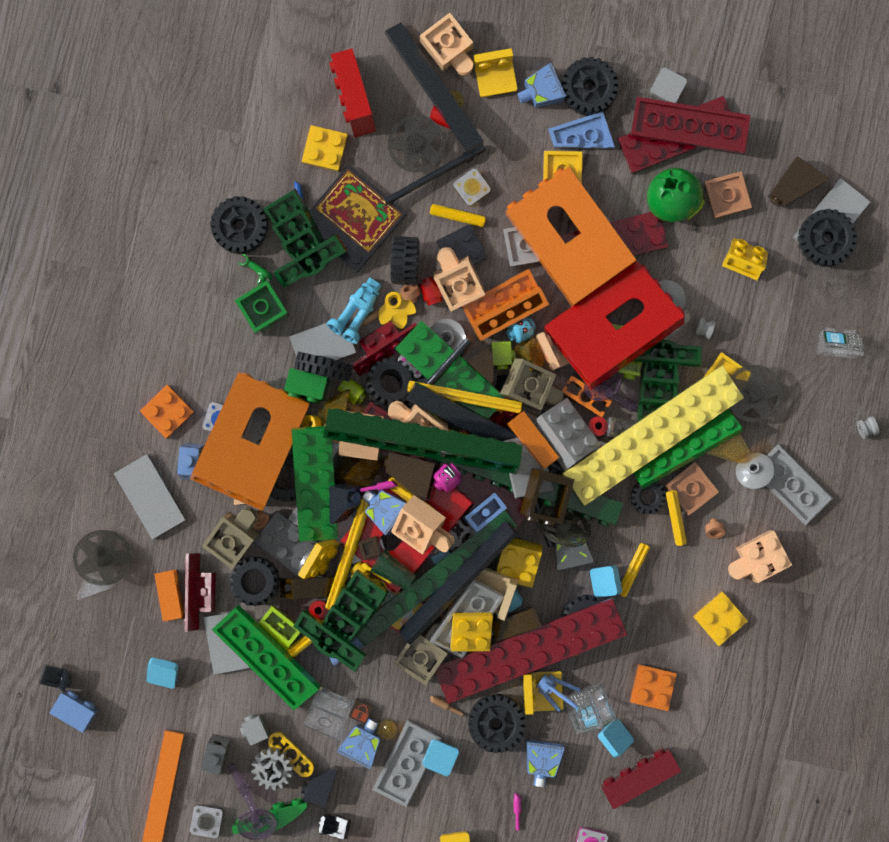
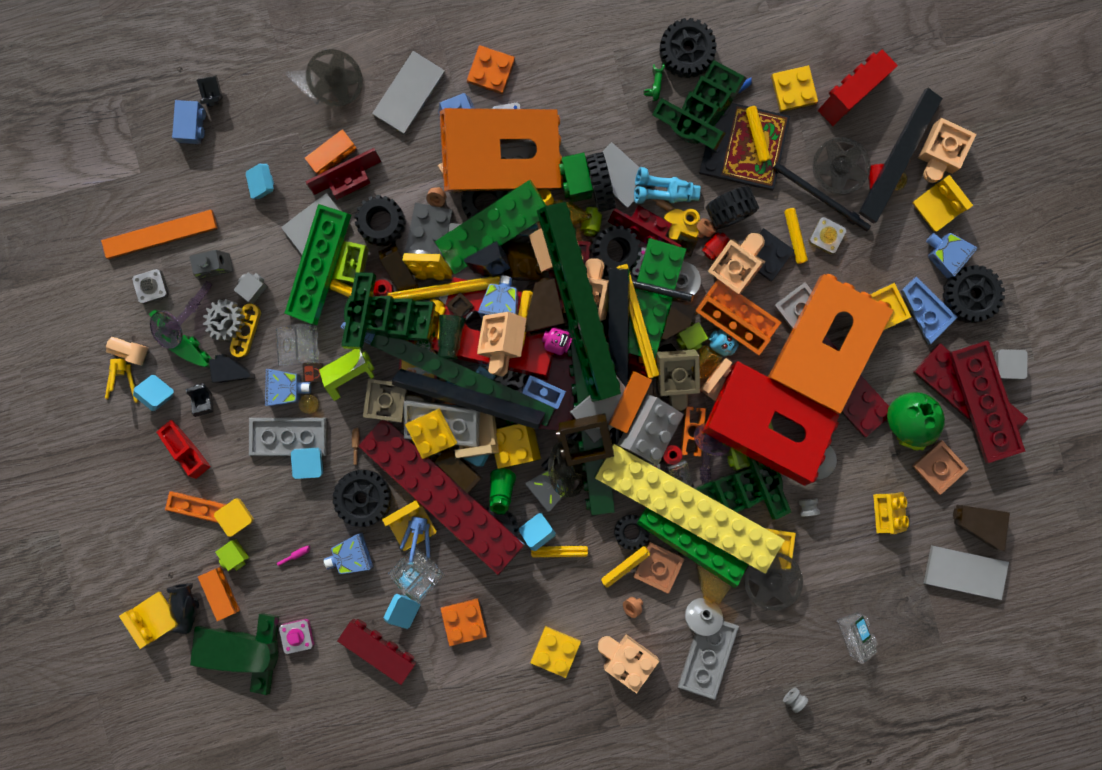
camera: 65 degrees right, 0 degrees up
(235, 537) = (409, 181): dark tan brick -> none
(262, 307) = (625, 104): green brick -> none
(351, 203) = (758, 134): none -> yellow axle
(374, 680) = (345, 369): none -> lime panel
(380, 486) = (520, 287): dark pink piece -> none
(415, 315) = (687, 242): none -> dark brown tile
(550, 592) = (501, 489): none -> green plant
(842, 237) = (963, 581): black wheel -> none

